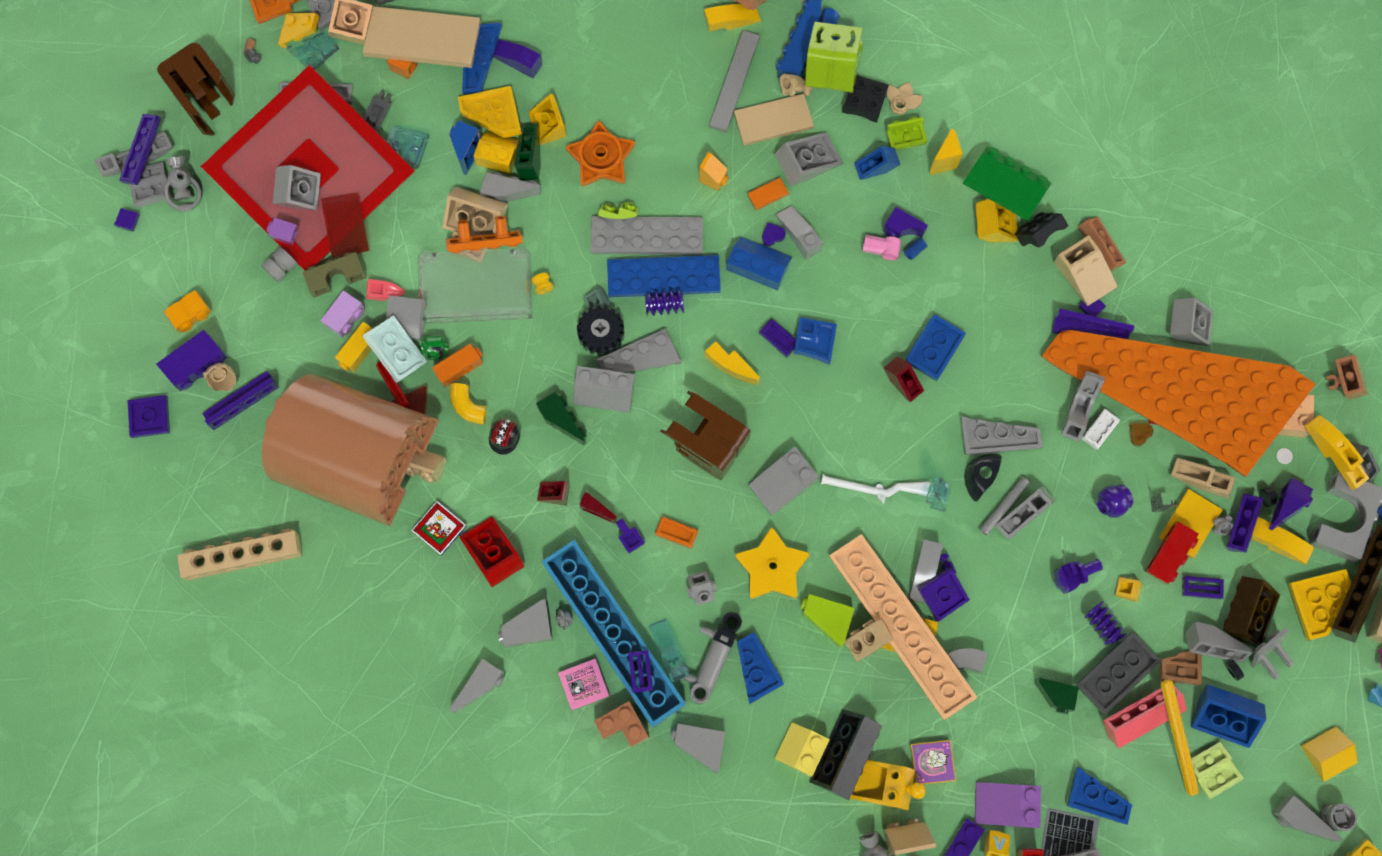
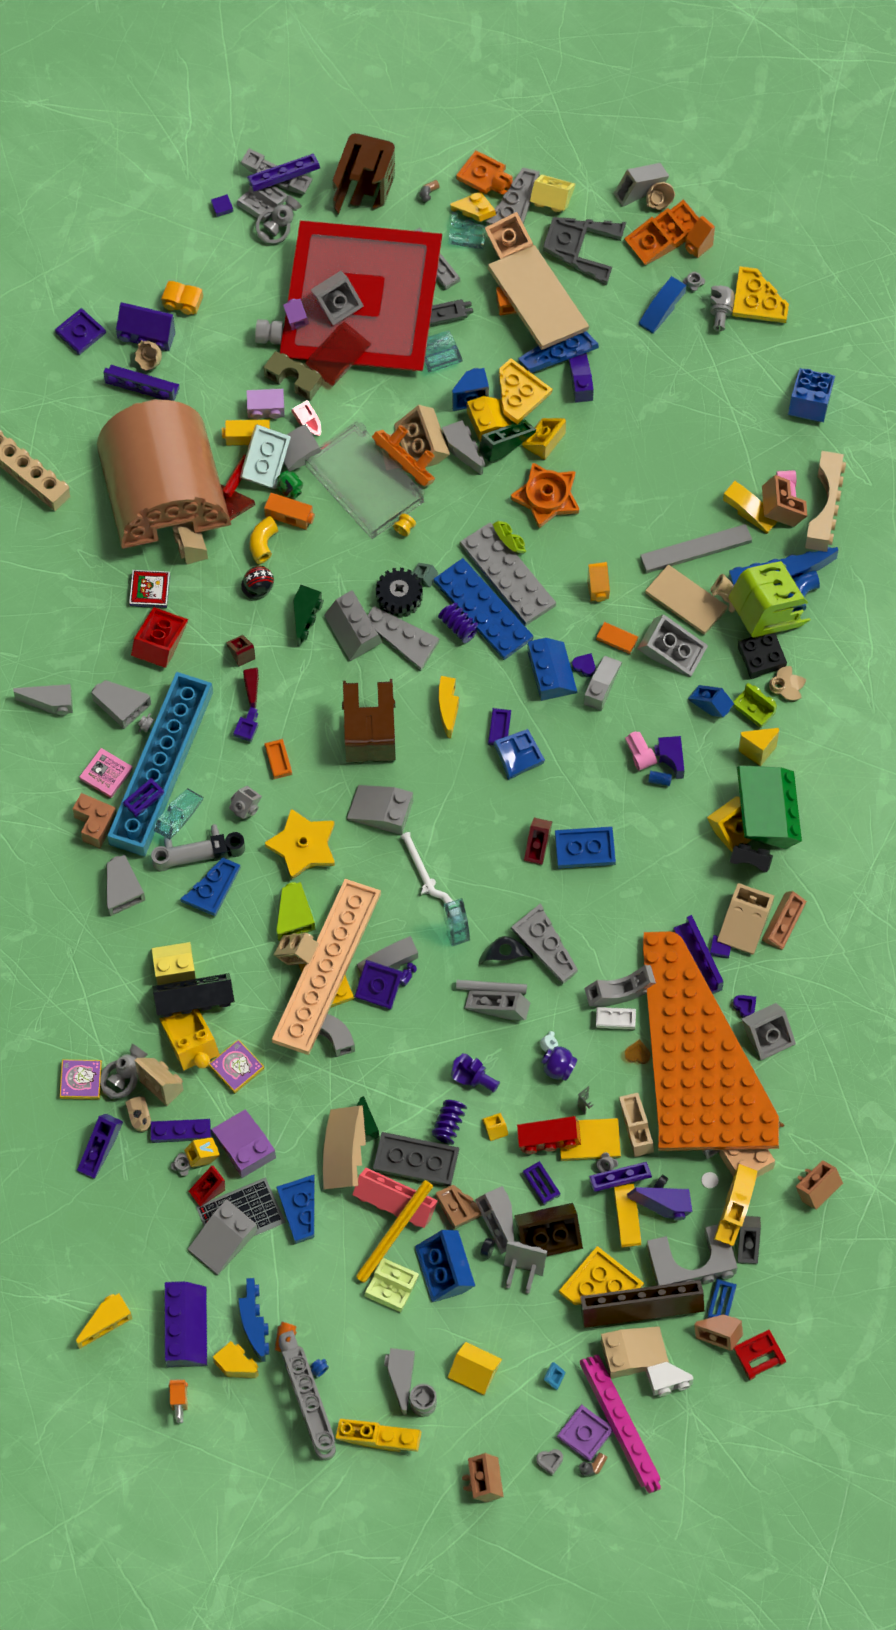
camera: 55 degrees right, 10 degrees down
(1075, 727) = (343, 1147): none -> tan slope
(1086, 495) = (548, 1041): none -> light aqua piece
(1155, 324) = (744, 1004): none -> dark purple tile

